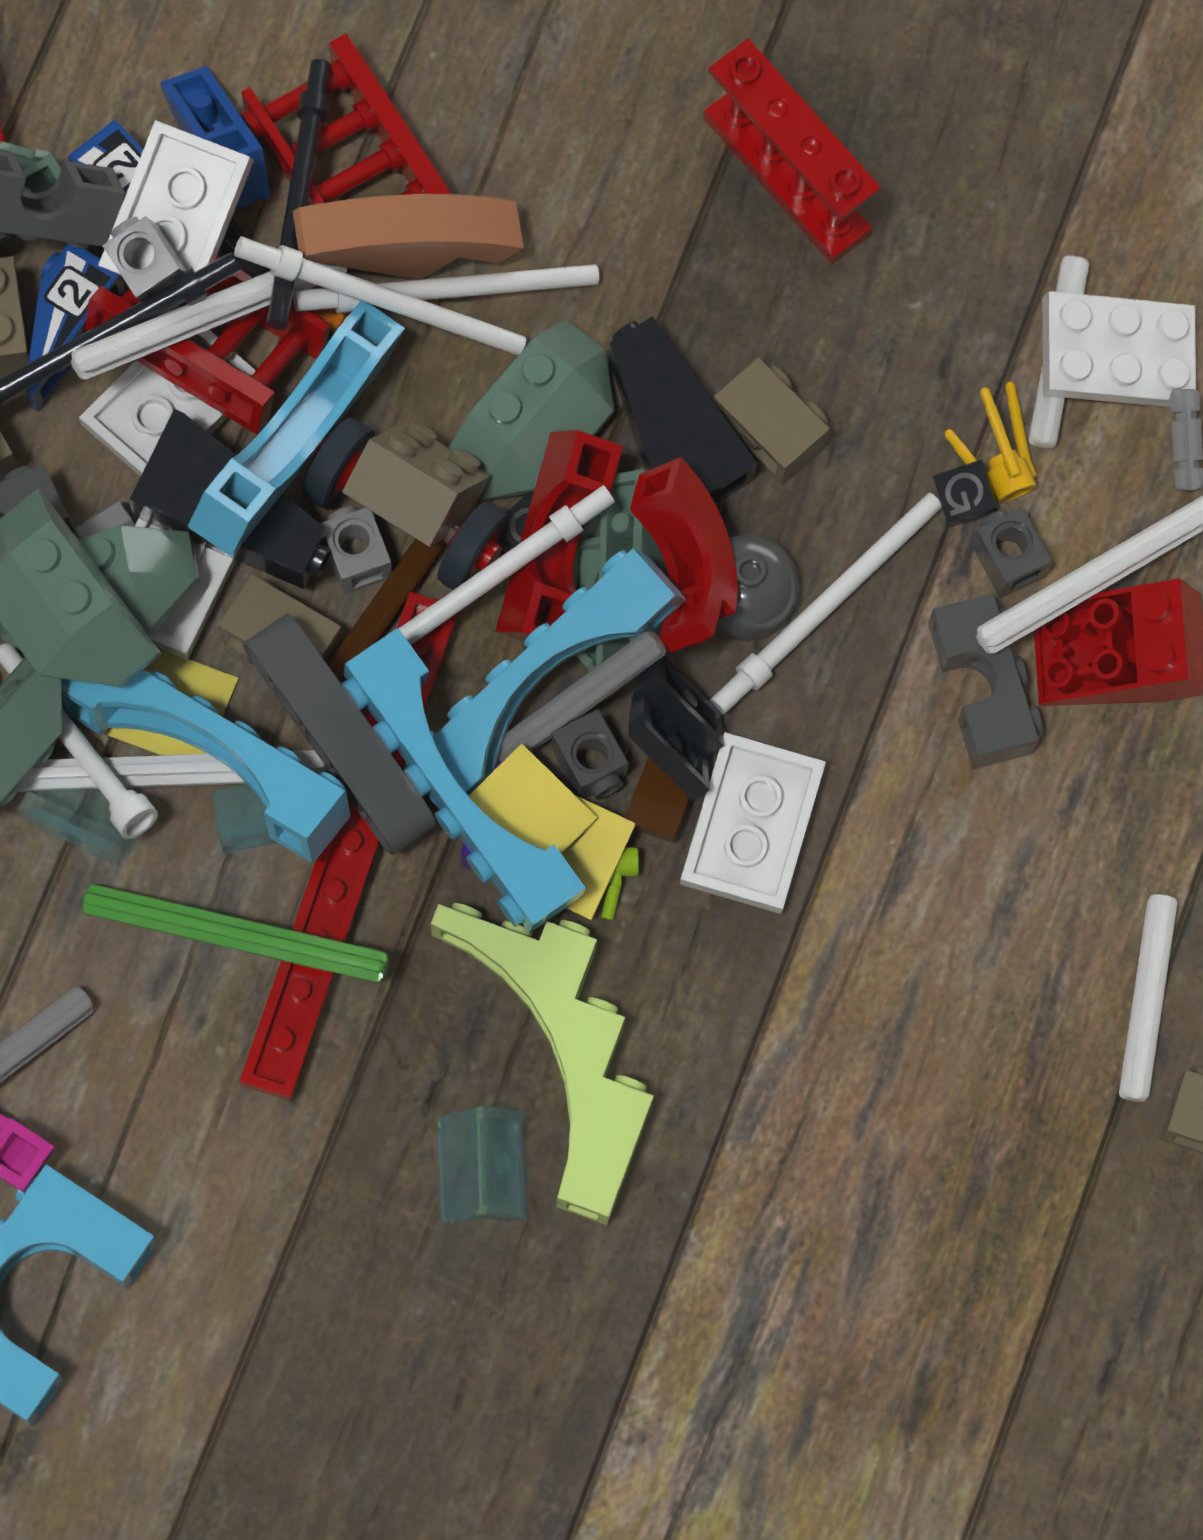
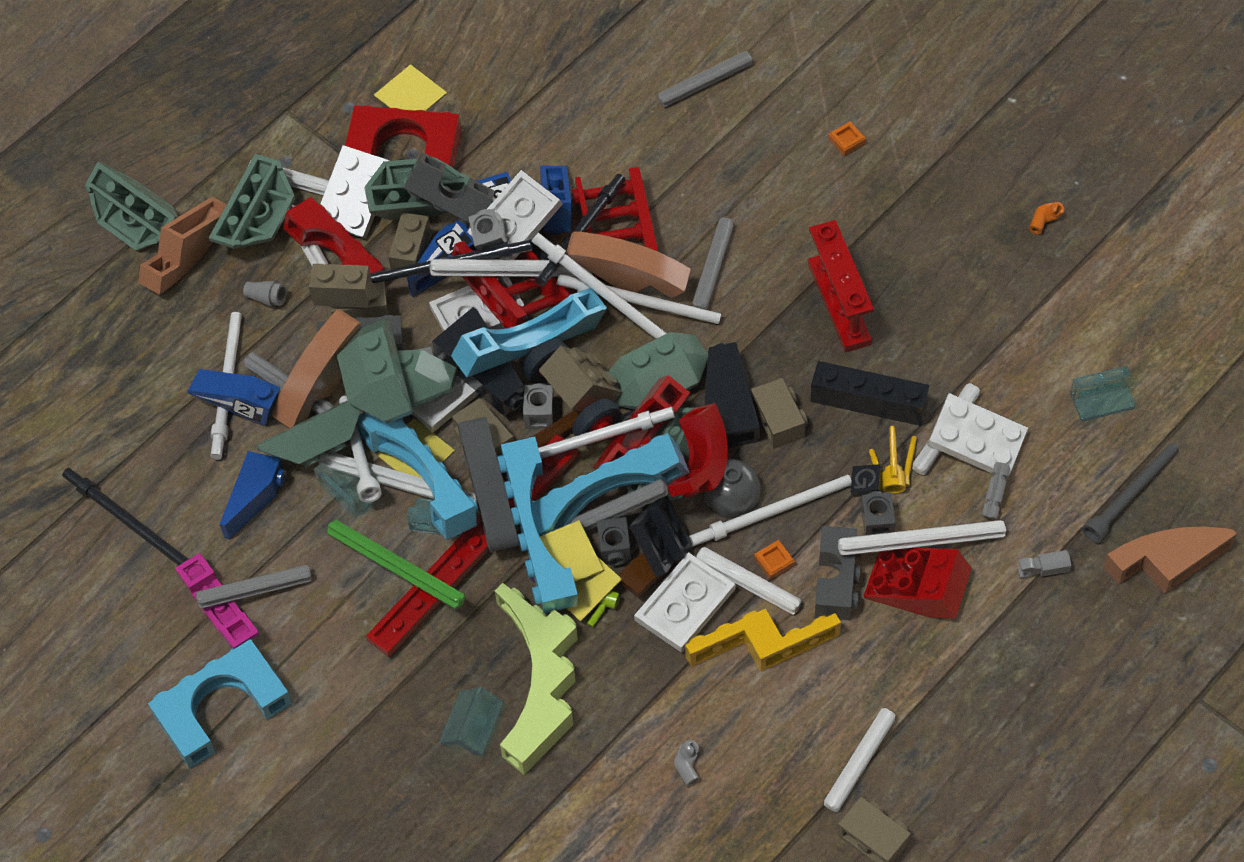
camera: 30 degrees right, 15 degrees down
(543, 173) = (713, 263): none -> light grey axle
(842, 744) = (750, 581): none -> white axle
(865, 1105) = (684, 762): none -> light grey arm
(867, 690) = (774, 559): none -> orange tile
(908, 844) = (762, 639): none -> yellow bracket
(911, 332) = (869, 393): none -> black brick

